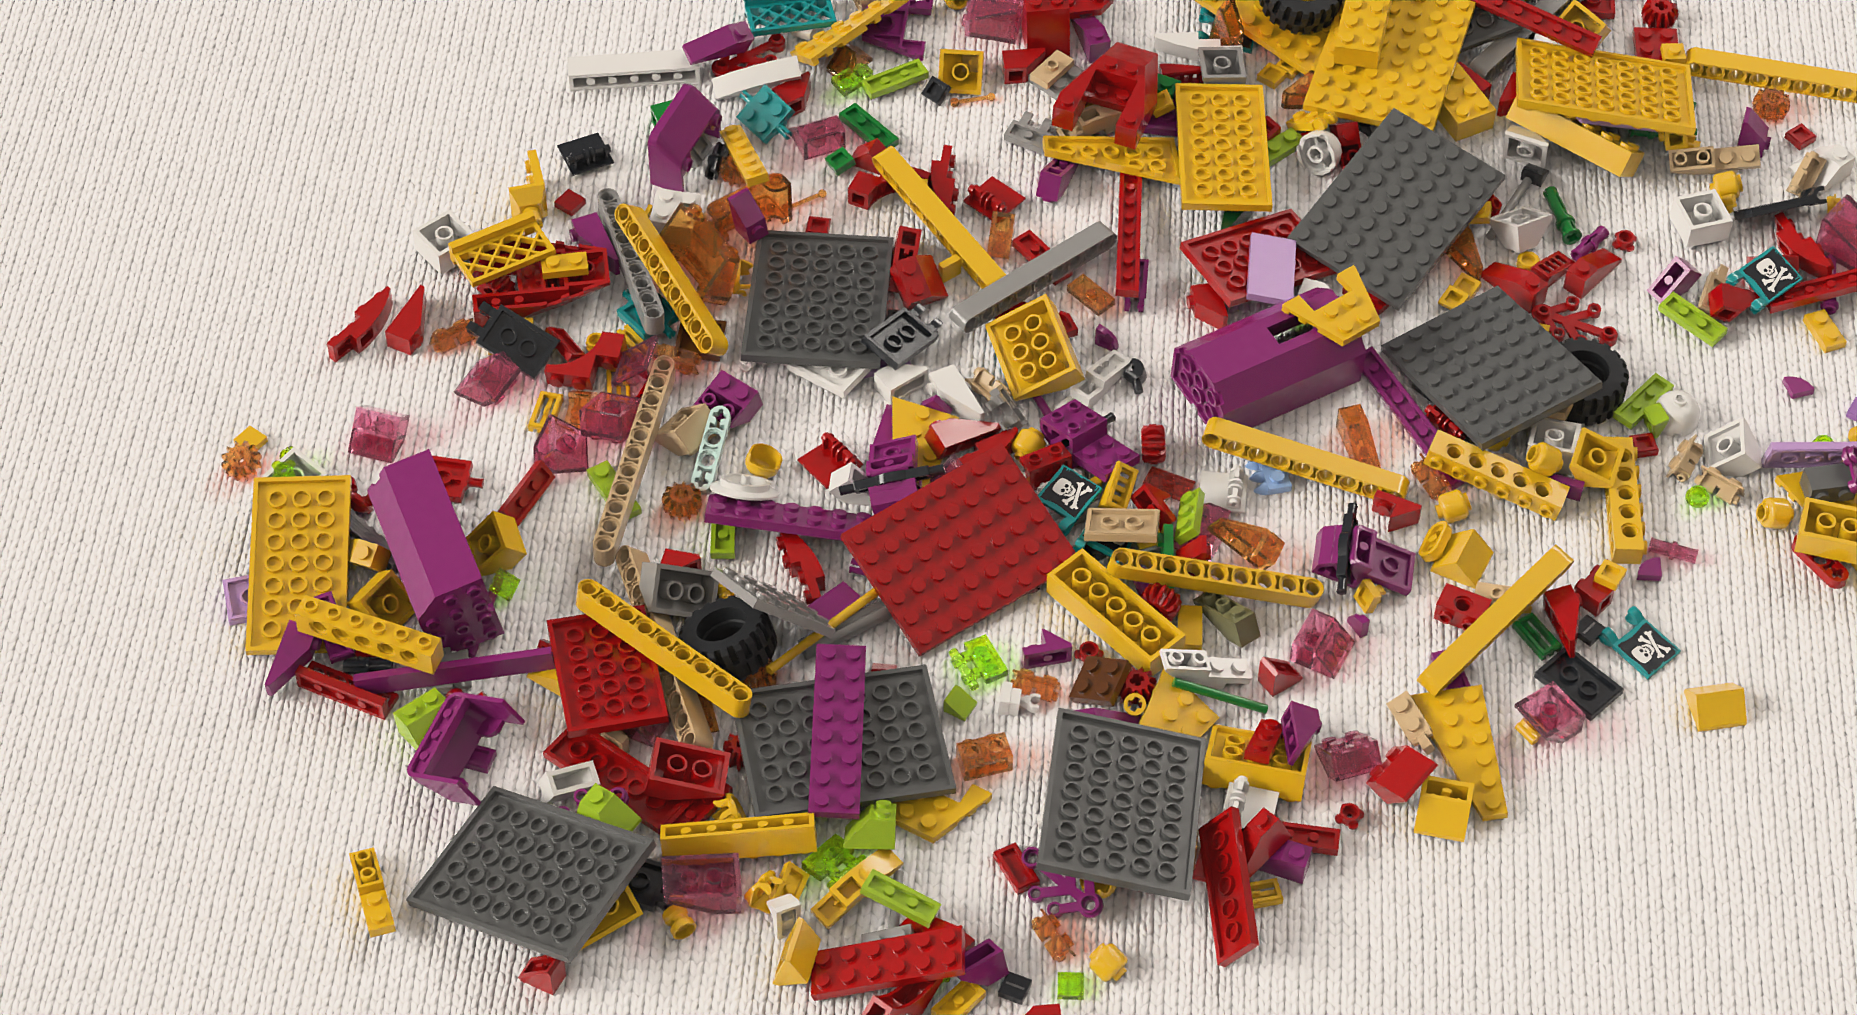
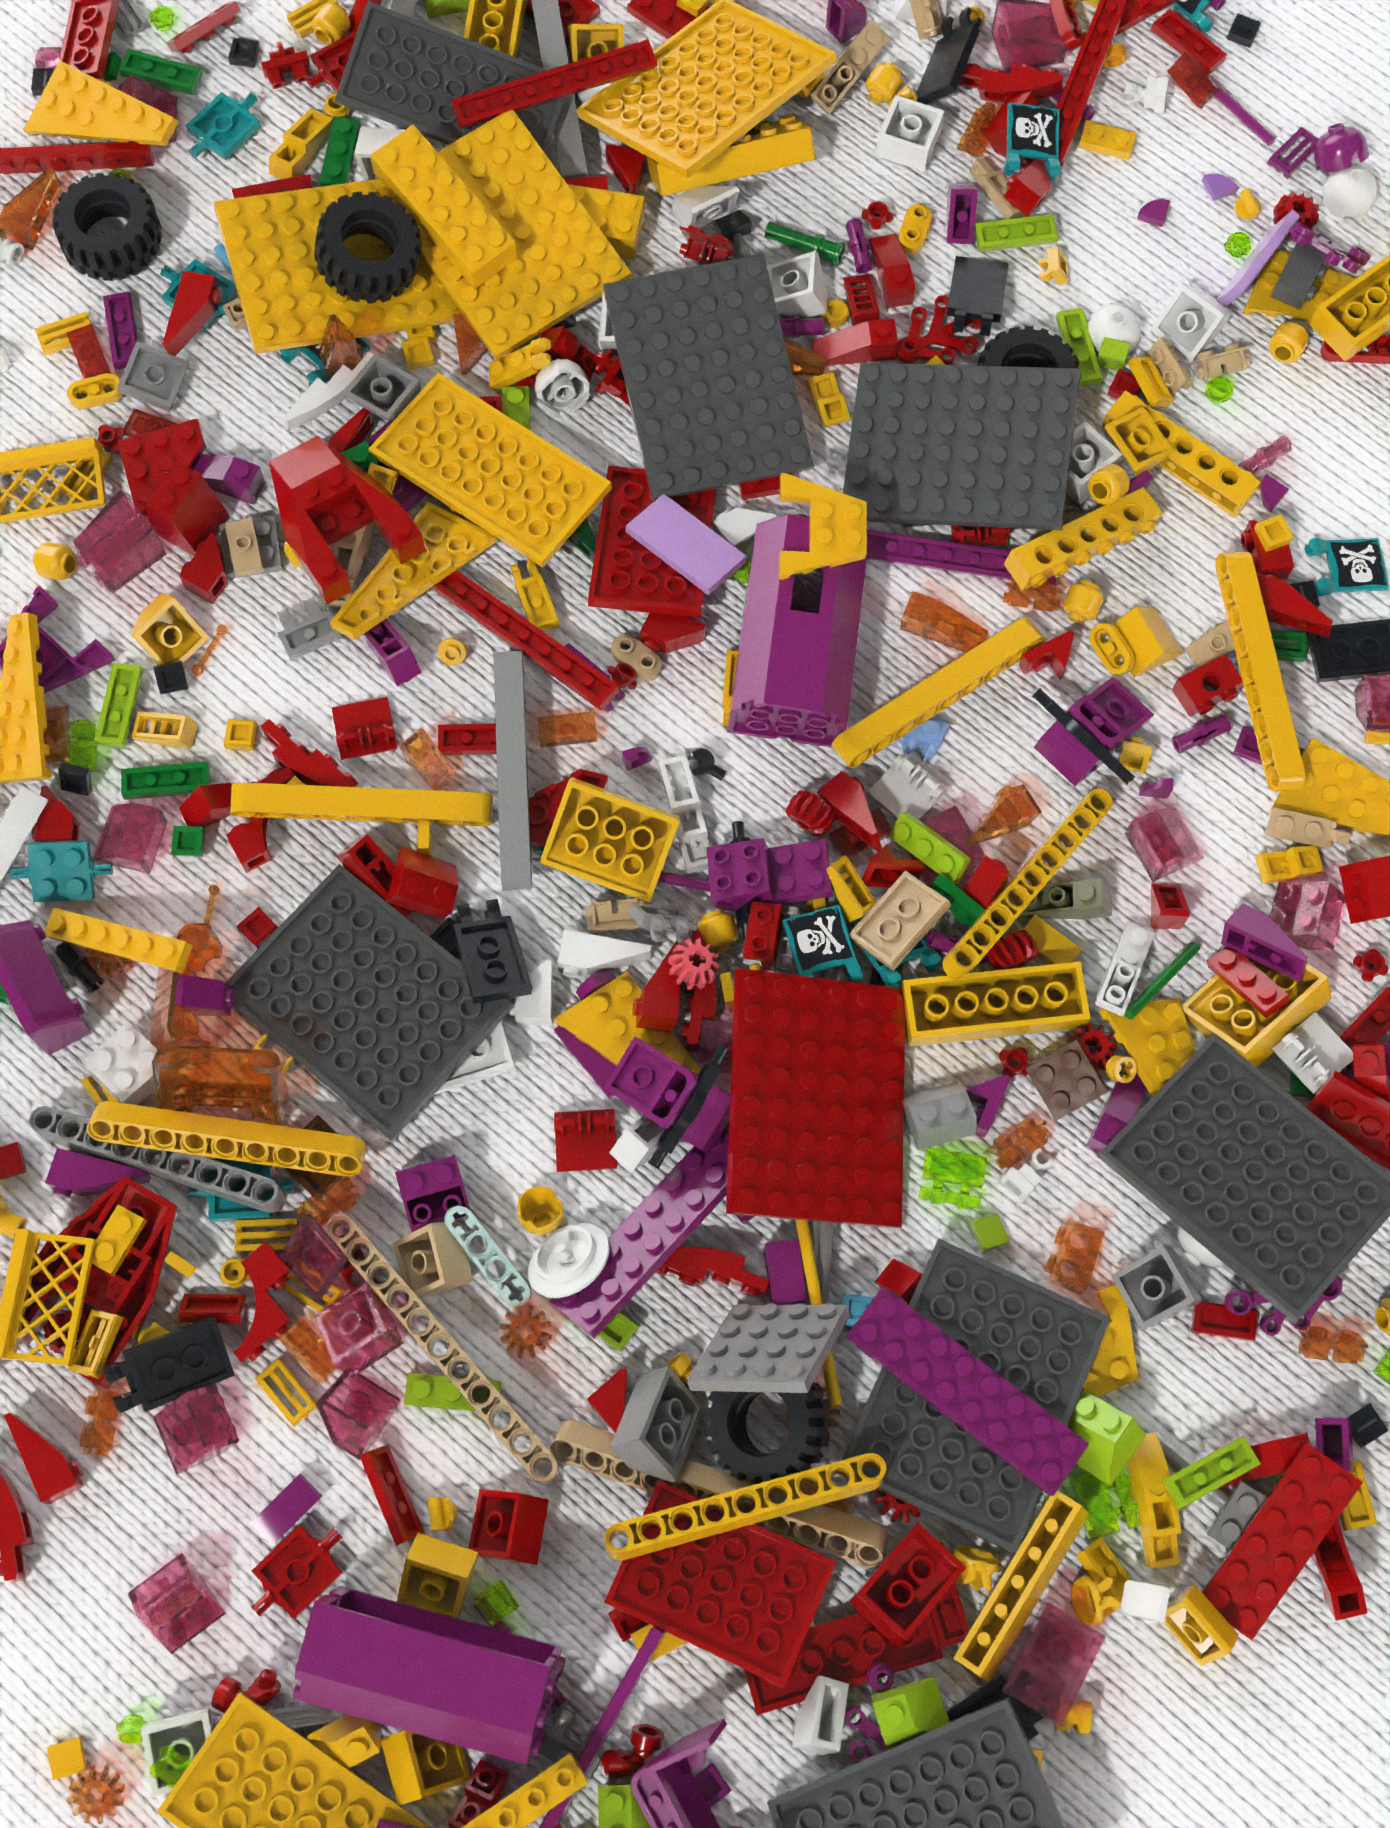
camera: 55 degrees left, 20 degrees up
(480, 450) = (286, 1509): none -> magenta slope
(496, 292) = (99, 1344): none -> yellow tile
(534, 525) = (442, 1514): none -> yellow plate
(556, 563) = (508, 1526): none -> red slope
(577, 307) = (179, 1264): none -> yellow tile
(828, 87) = (75, 779): none -> black tile
(902, 112) = (182, 732): none -> yellow slope
(931, 146) = (240, 734): none -> yellow tile
(988, 432) = (704, 961): none -> coral gear
(1004, 810) = (1156, 1287): none -> light grey slope
(1009, 626) = (939, 1115): none -> light grey slope
(1087, 210) = (452, 651): none -> yellow plate
(1154, 300) = (623, 675): none -> red plate
(1163, 227) = (535, 598): none -> yellow hinge
(1175, 302) = (636, 656): none -> tan plate
(1178, 461) = (850, 806): none -> red slope
(1373, 725) = (1289, 865): none -> yellow slope
(1409, 620) = (1201, 734): none -> magenta pin
(1494, 246) = (802, 326): none -> magenta pin
(1499, 162) = (696, 239): none -> red hinge
(1620, 321) = (977, 292): none -> black tile
(1637, 267) = (915, 226): none -> yellow plate
(1659, 453) = (1150, 381): none -> yellow tile
(1691, 354) = (1056, 265): none -> yellow tile
(1737, 257) = (973, 140): none -> clear orange hinge

